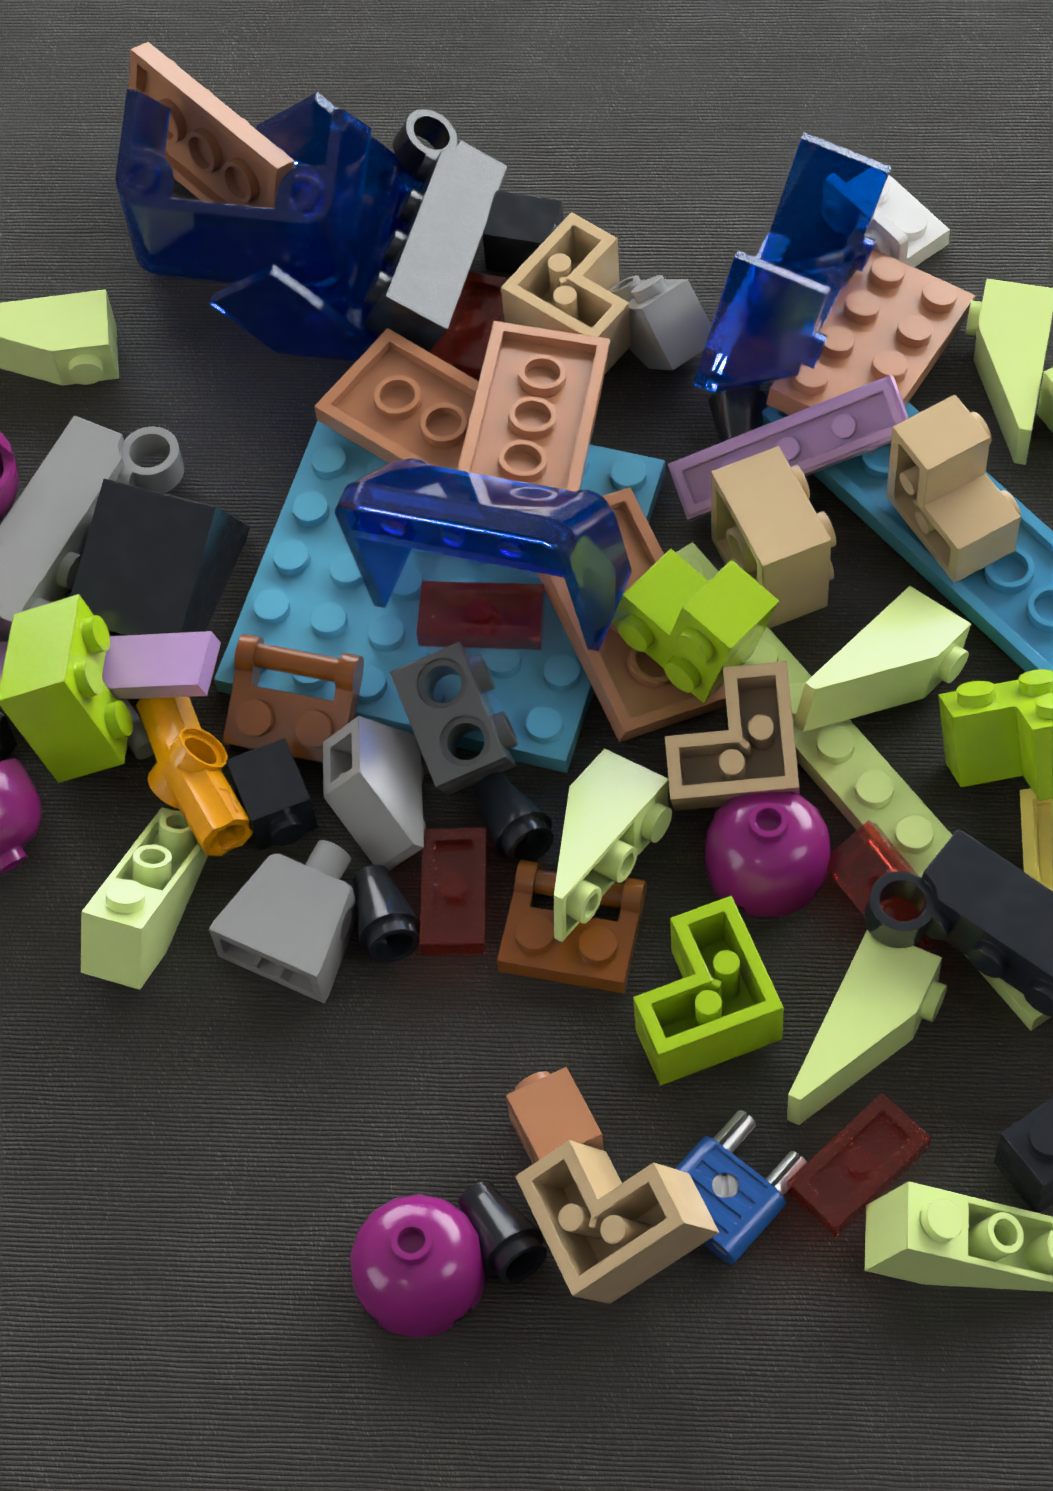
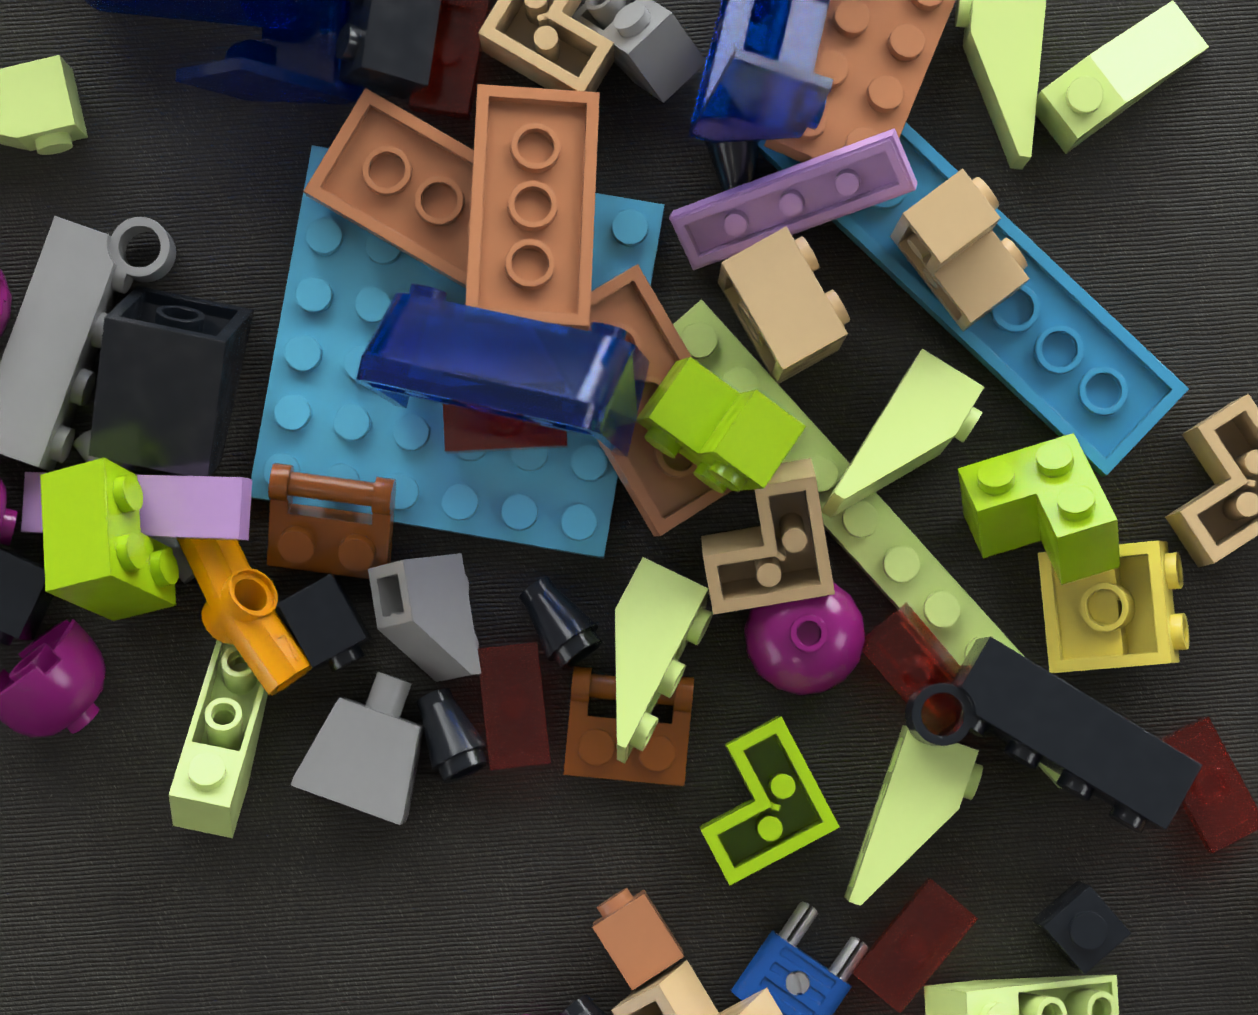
camera: 10 degrees left, 25 degrees up
(443, 724) = (479, 543): dark grey brick -> none

